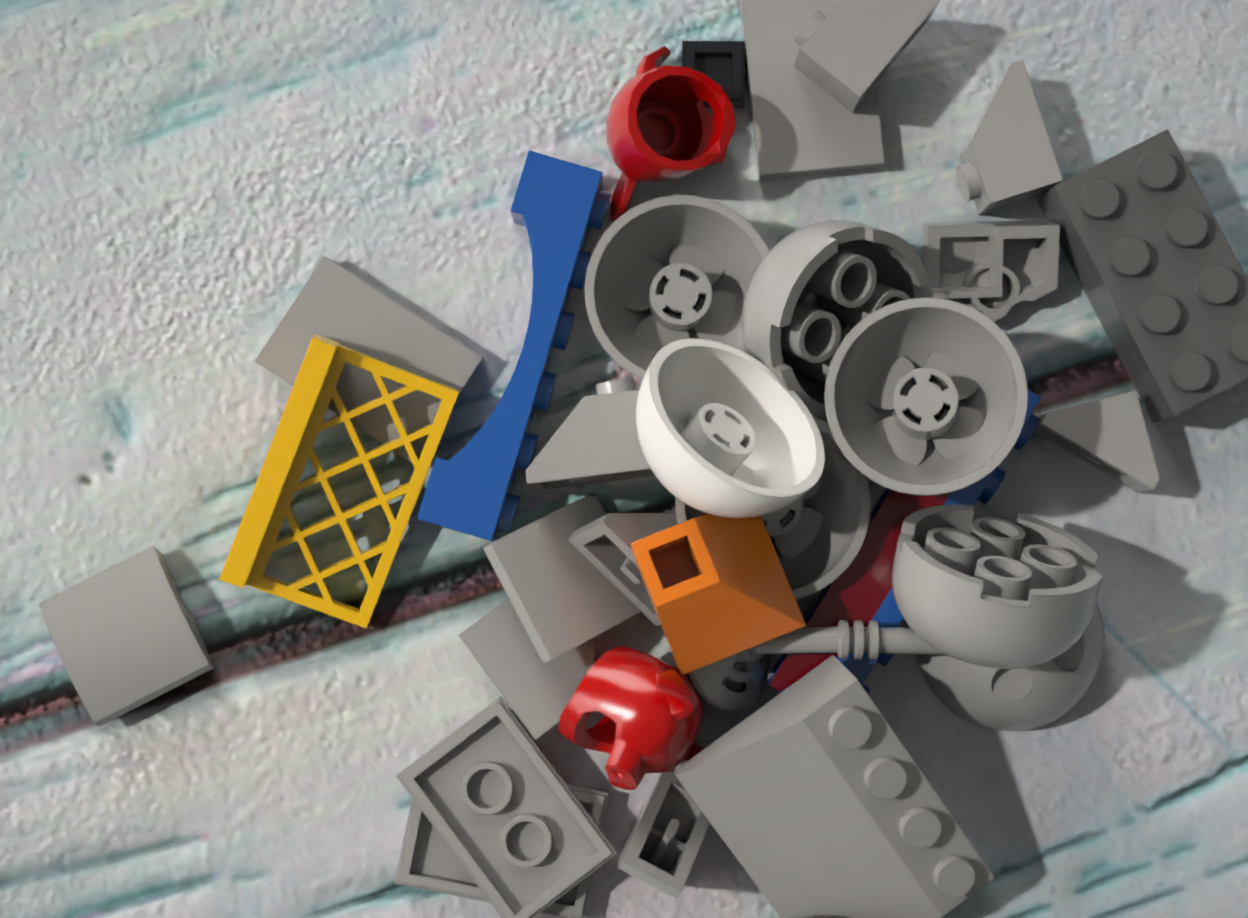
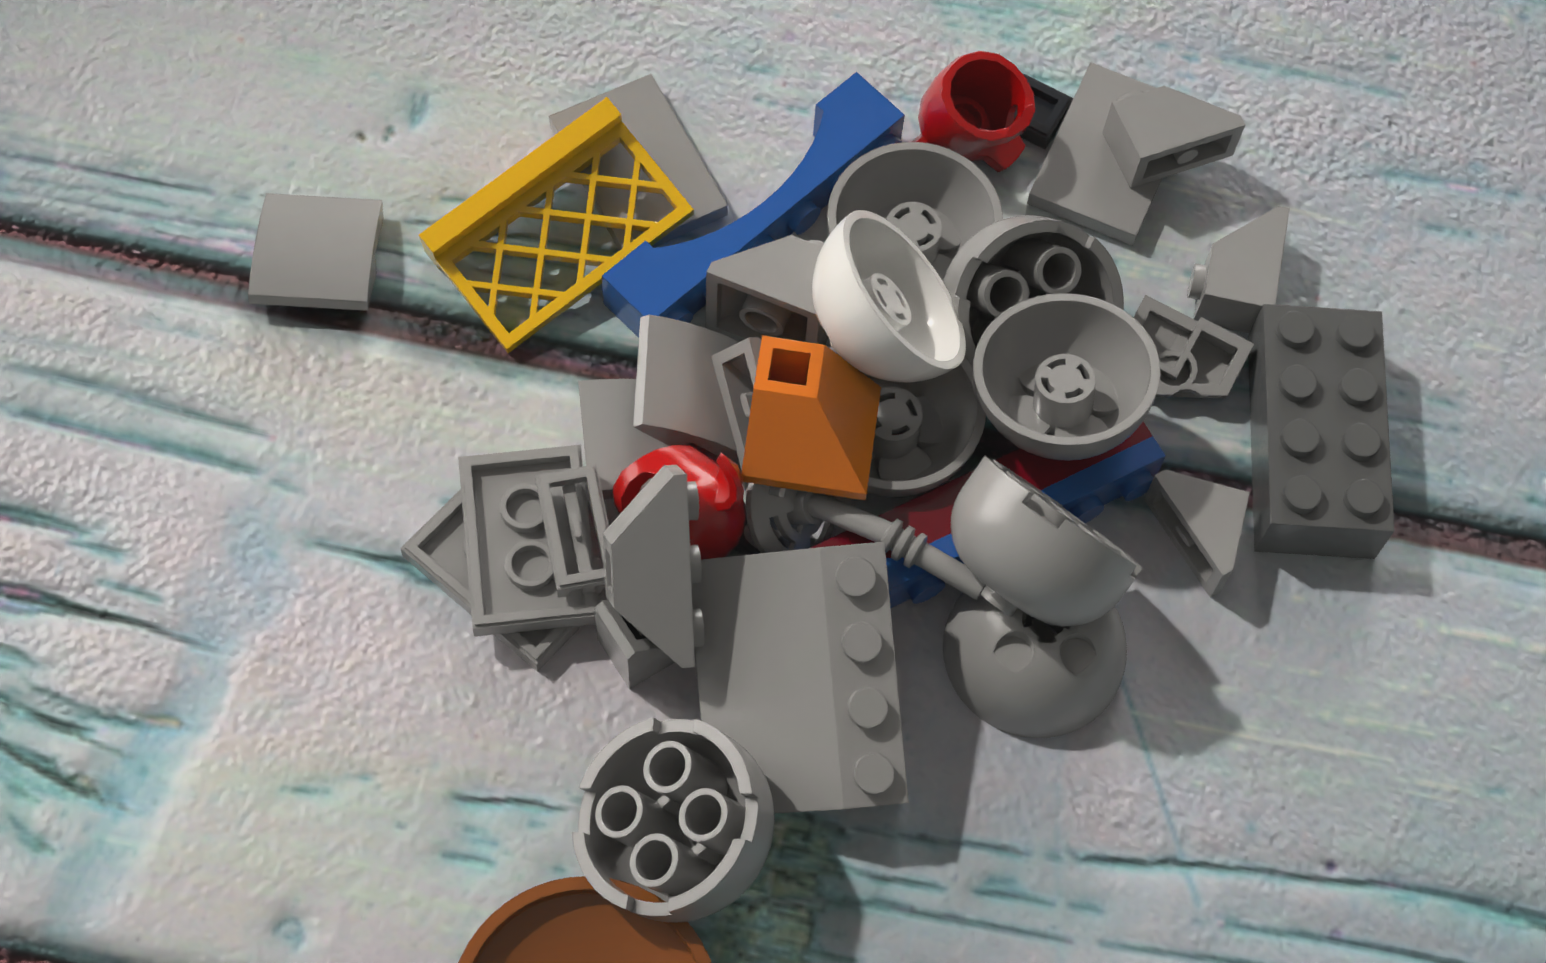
camera: 25 degrees right, 20 degrees down
(515, 749) = (586, 578): none -> light grey tile
(658, 814) = (654, 565): none -> light grey slope

